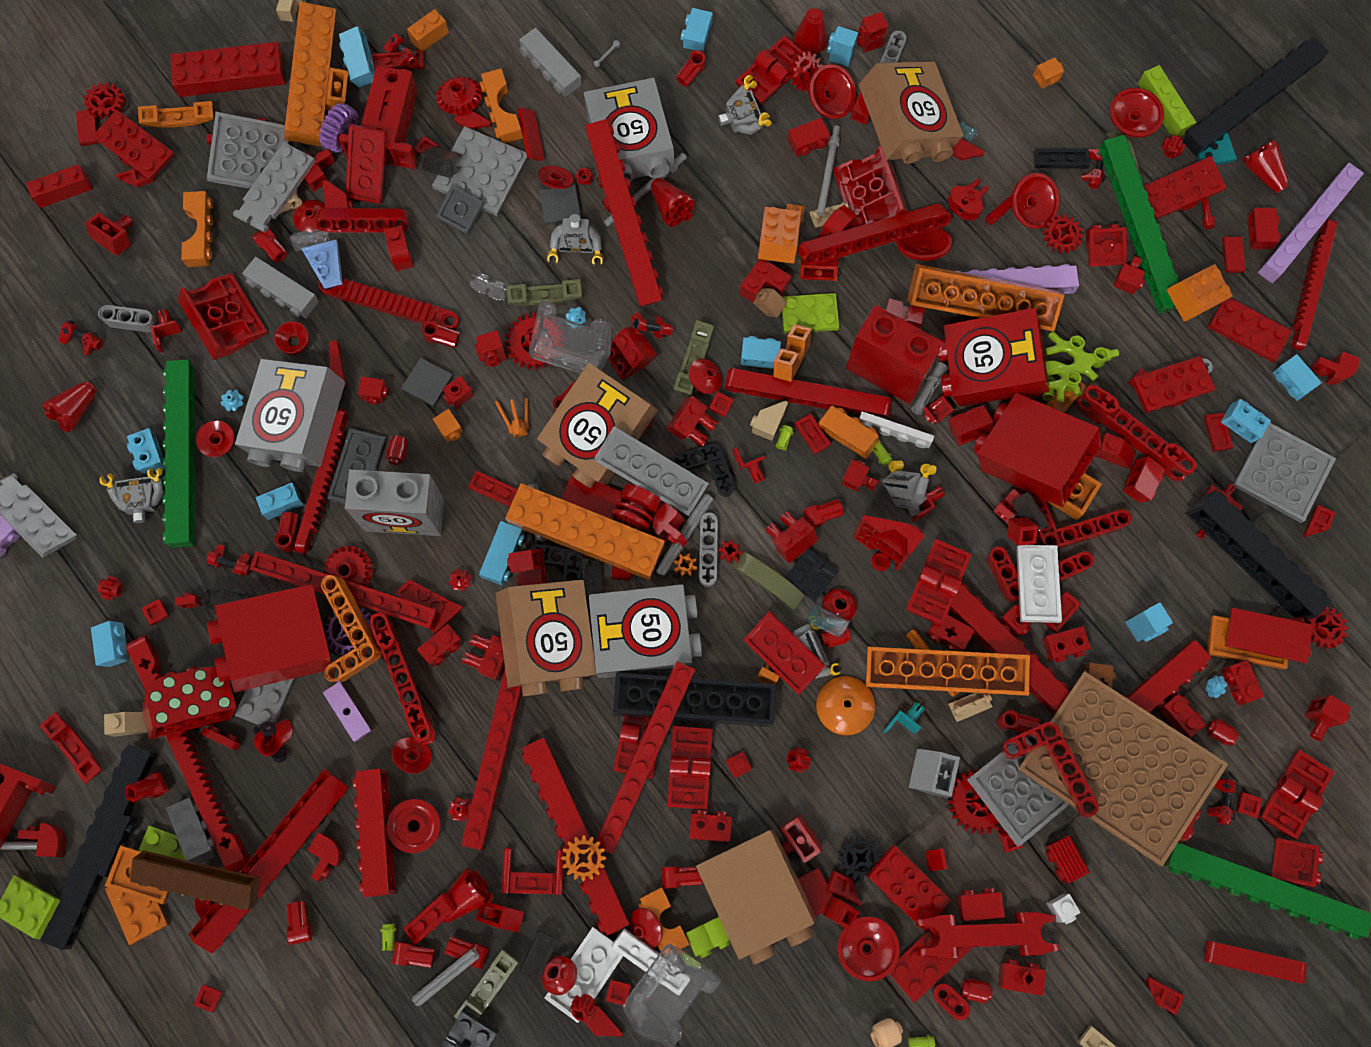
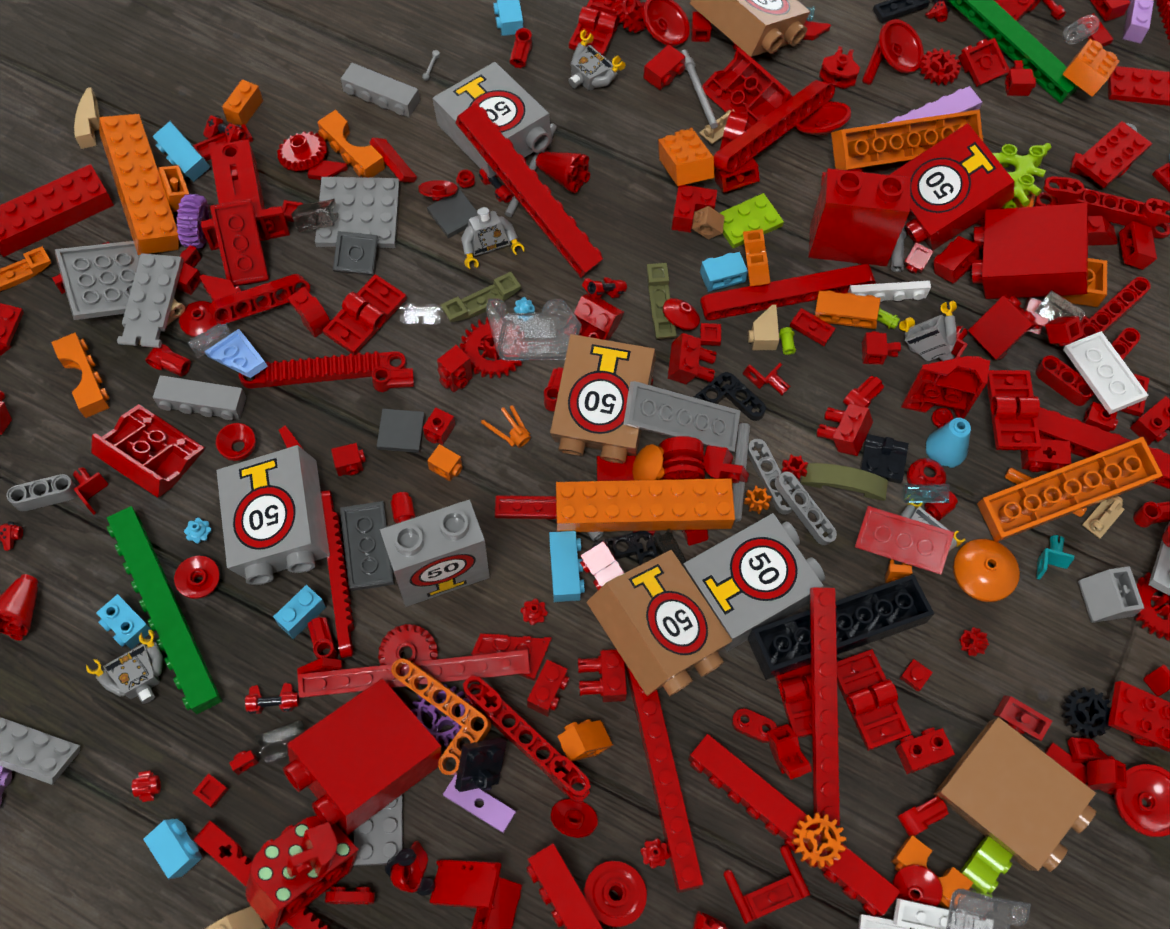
camera: 25 degrees left, 10 degrees down
(202, 700) = (320, 850): none -> red brick
(276, 552) = (320, 665): none -> red tile
(306, 767) = (465, 887): none -> red door
(357, 683) = (480, 764): none -> black hinge
(443, 267) = (364, 314): none -> red plate
(446, 699) = (584, 740): none -> orange brick
(588, 746) = (754, 726): none -> red plate
(600, 780) = (787, 752): none -> red brick
(607, 498) = (649, 463): none -> orange dish
(722, 589) = (808, 506): none -> light grey beam
(871, 588) = (949, 443): none -> medium azure cone
(973, 504) = (1002, 326): none -> red panel
(1217, 247) = (1080, 29): none -> clear plate

